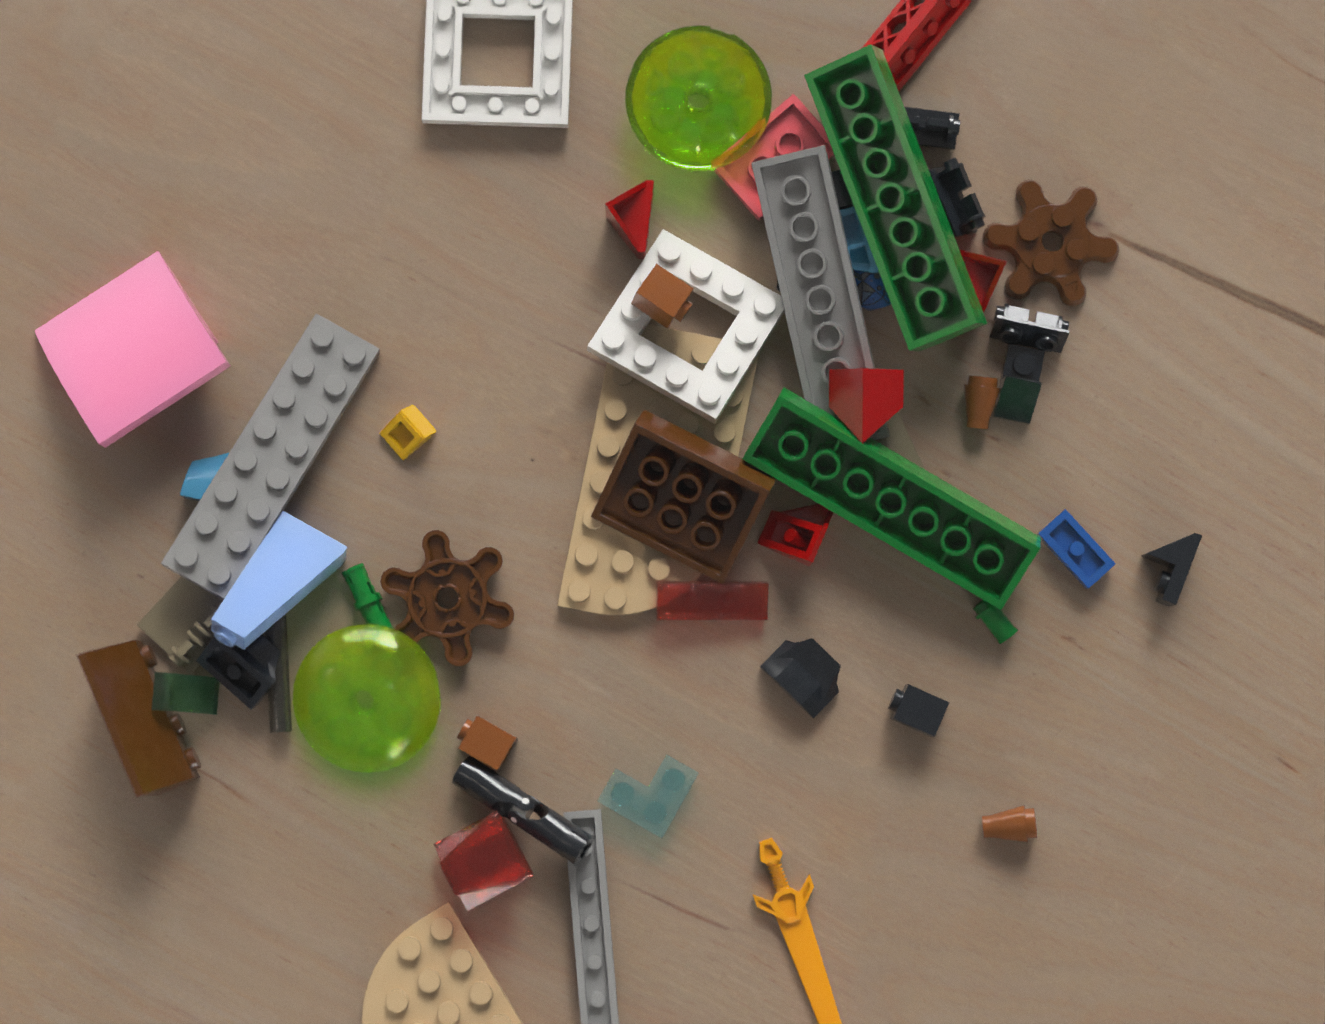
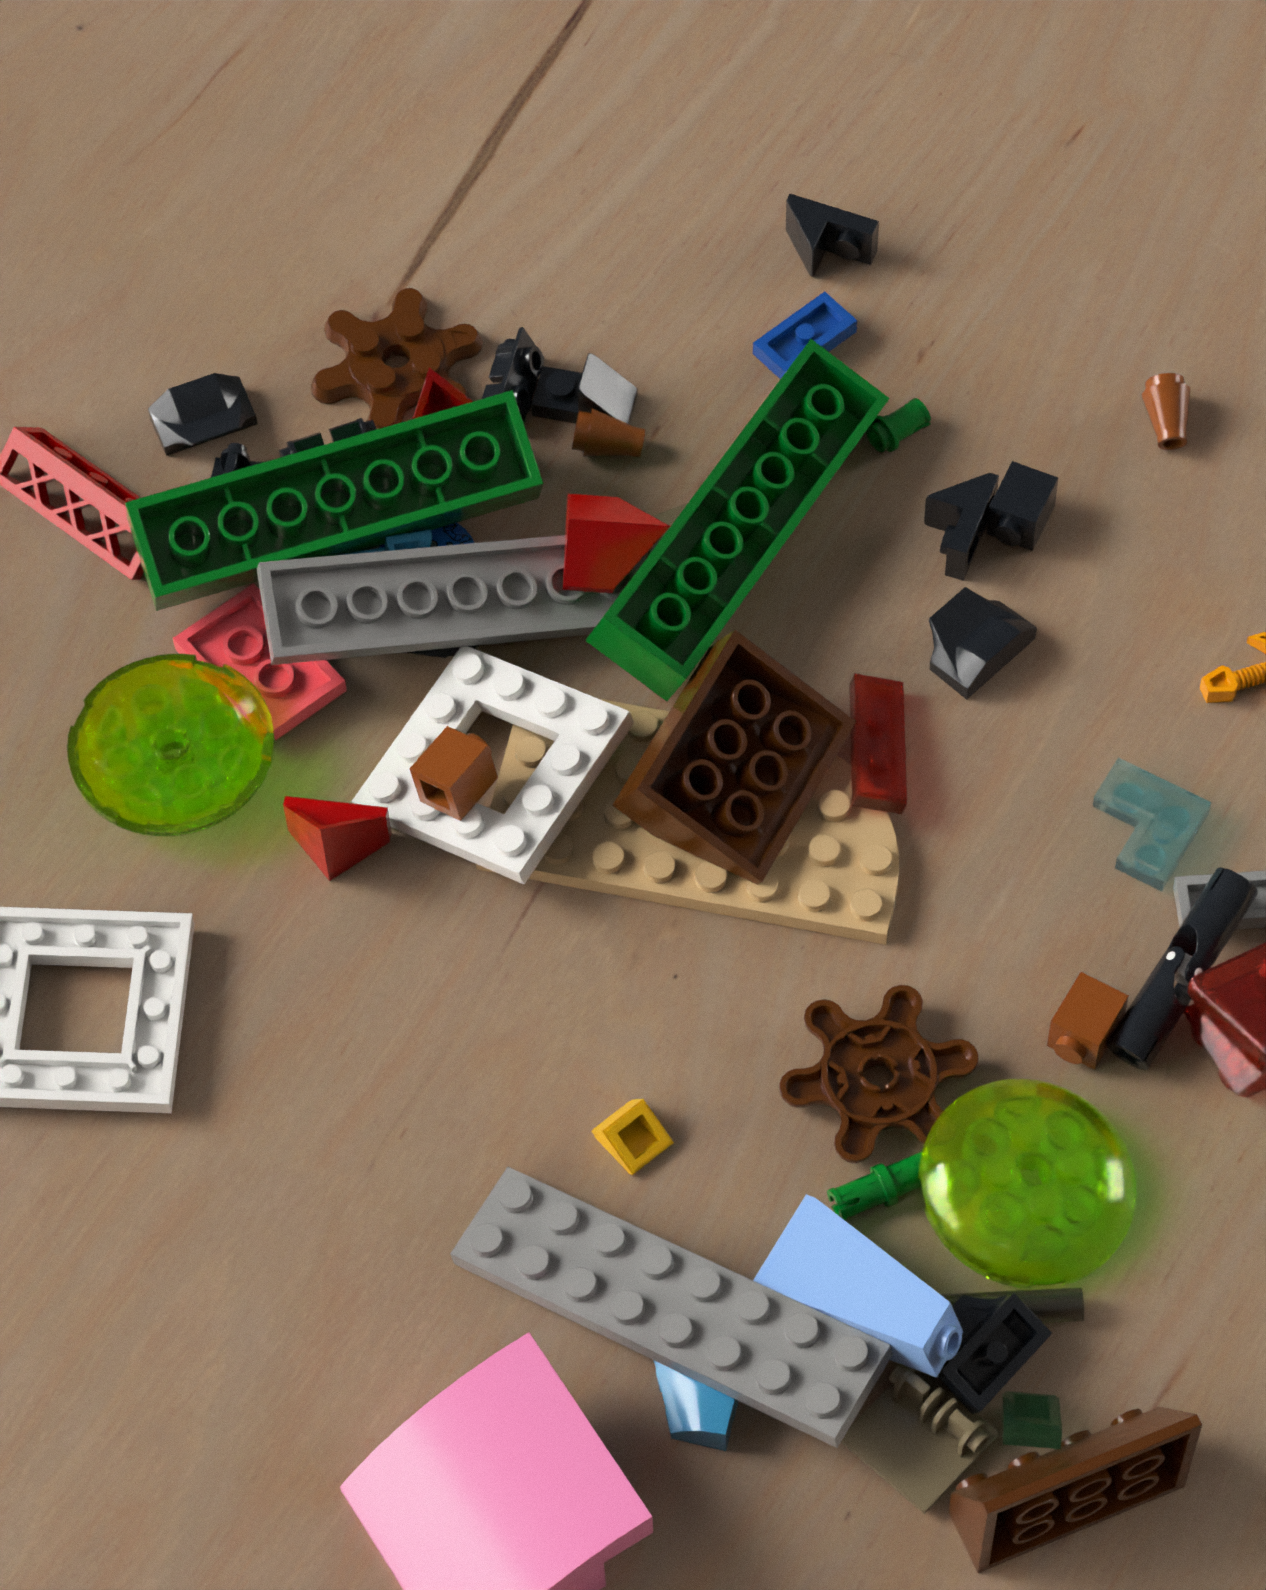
camera: 85 degrees left, 25 degrees down
(796, 532) = (787, 627): red slope -> none
(914, 671) = (964, 517): none -> black slope
(995, 102) = (201, 412): none -> black slope

